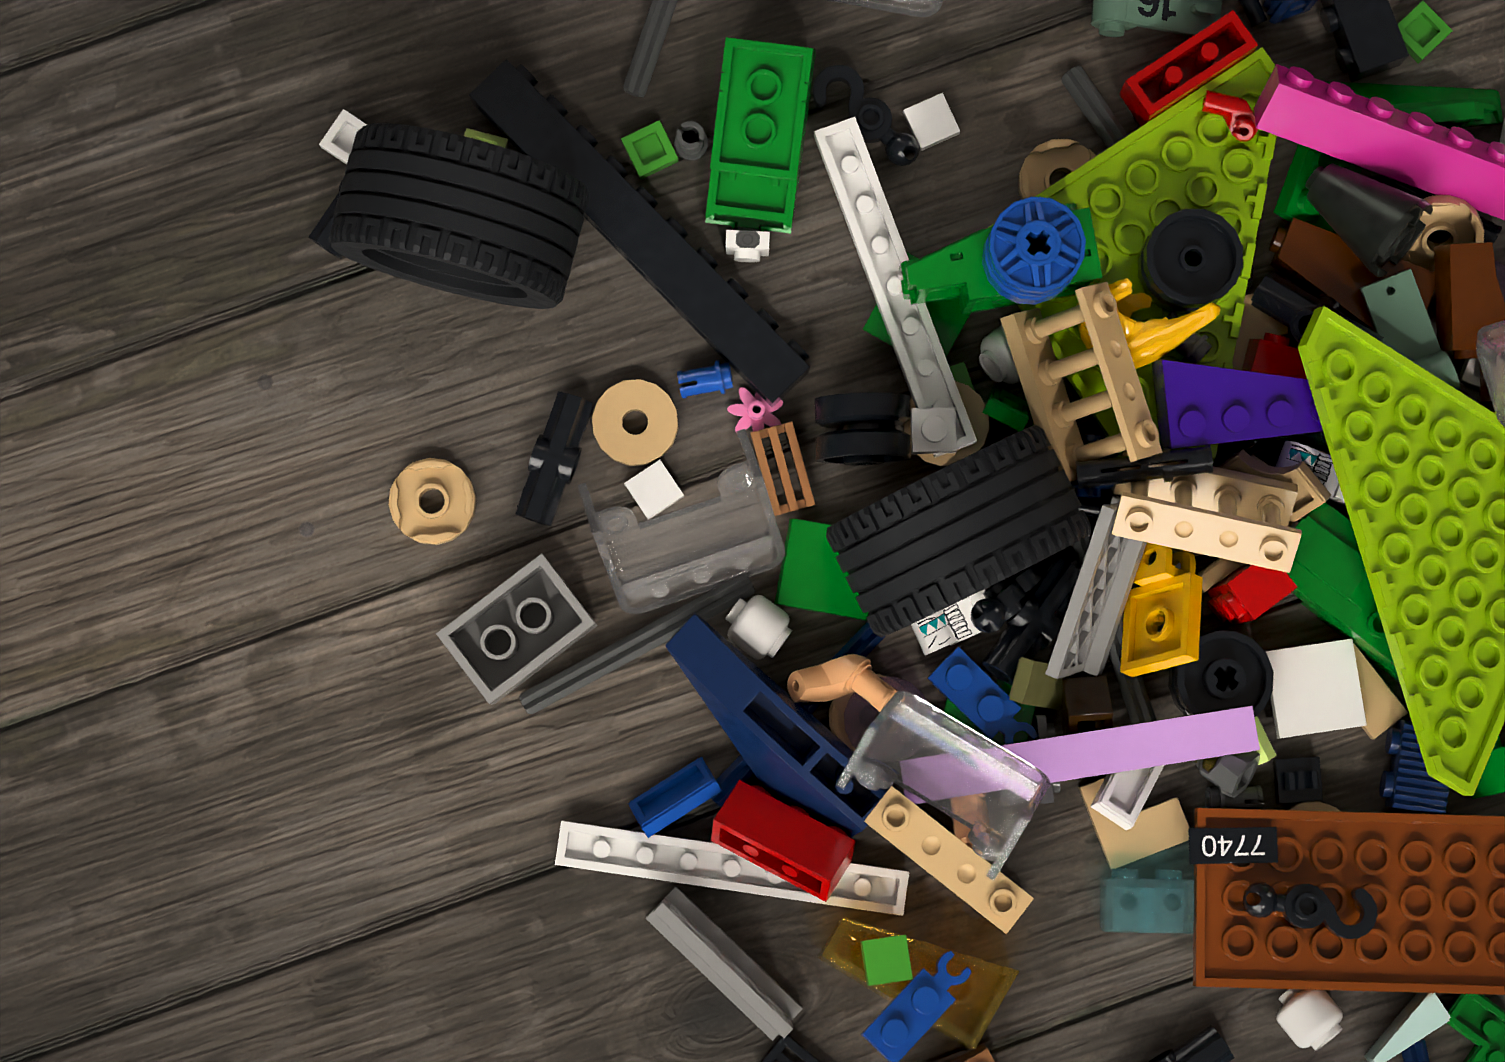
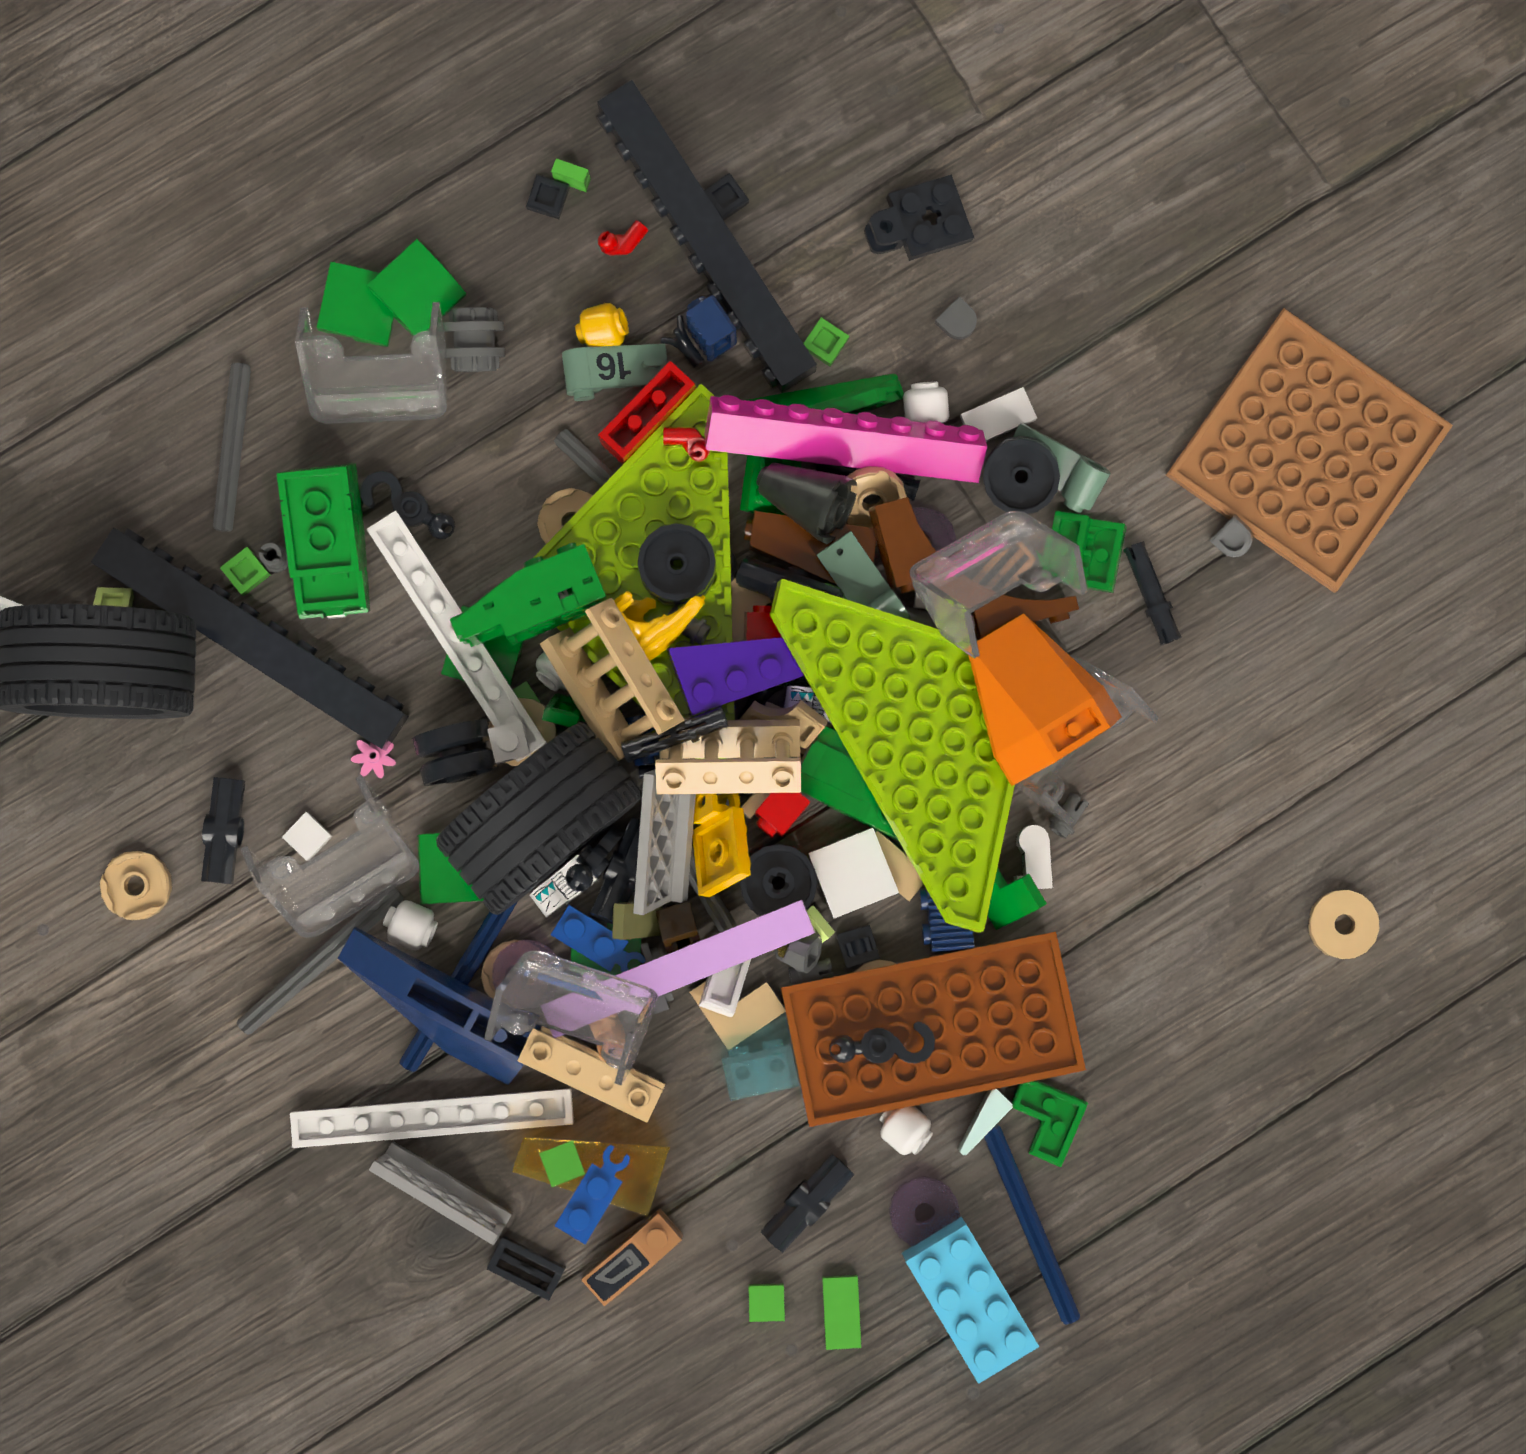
camera: 15 degrees left, 0 degrees up
(516, 629) = (221, 971): light grey brick -> none
(629, 397) = (260, 783): tan tile -> none
(674, 797) = (375, 1073): blue tile -> none
(708, 379) = (329, 740): blue pin -> none
(747, 245) = (336, 628): white plate -> none
(772, 433) = (389, 771): medium nougat tile -> none
(783, 840) = (464, 1087): red brick -> none
(839, 678) = (478, 953): light nougat arm -> none
(931, 121) = (460, 499): white tile -> none
(1047, 273) = (548, 609): blue wheel -> none
(1233, 845) = (814, 1010): black sticker -> none

